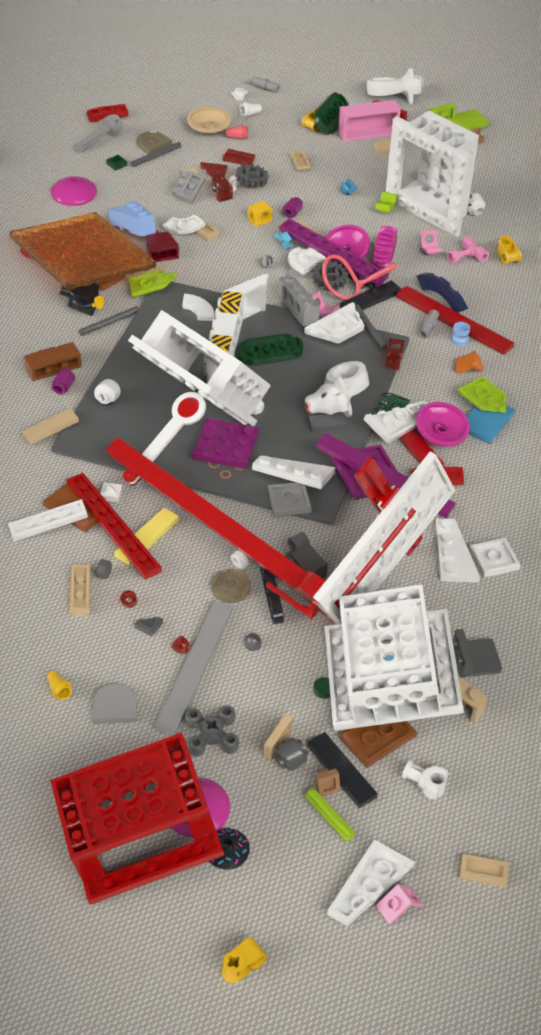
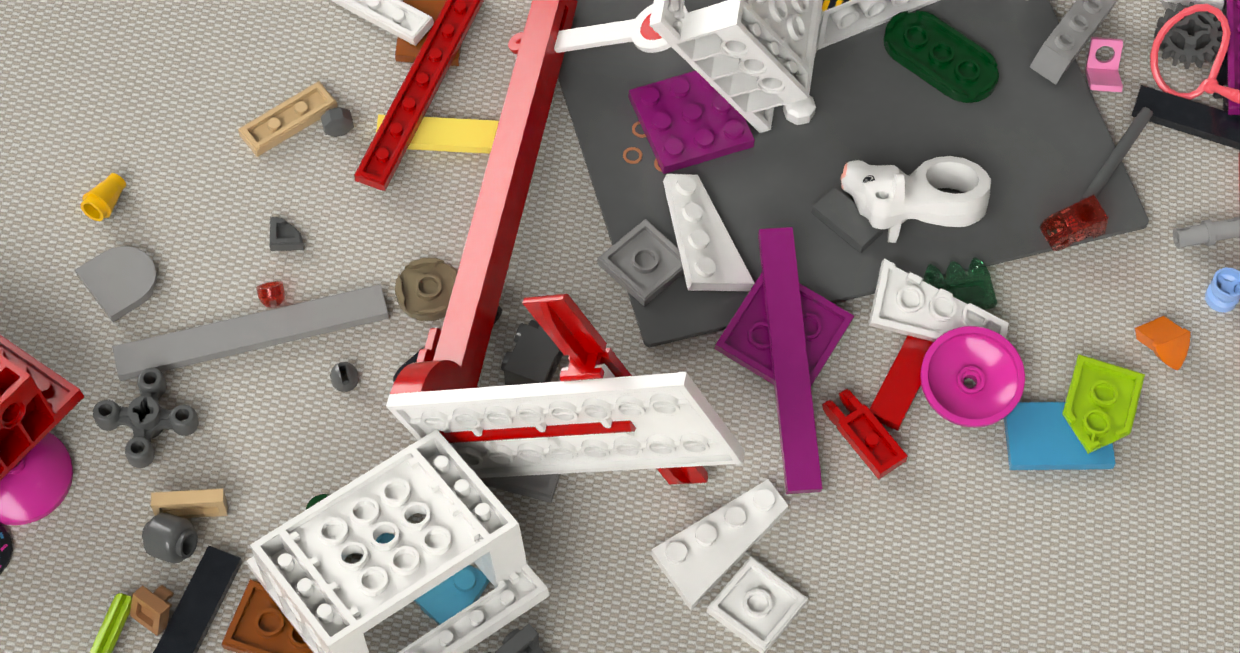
camera: 55 degrees right, 15 degrees up
(111, 492) = (489, 43): white tile -> none
(131, 596) = (300, 183): clear red hinge -> none
(337, 325) = (1076, 111): white wing -> none

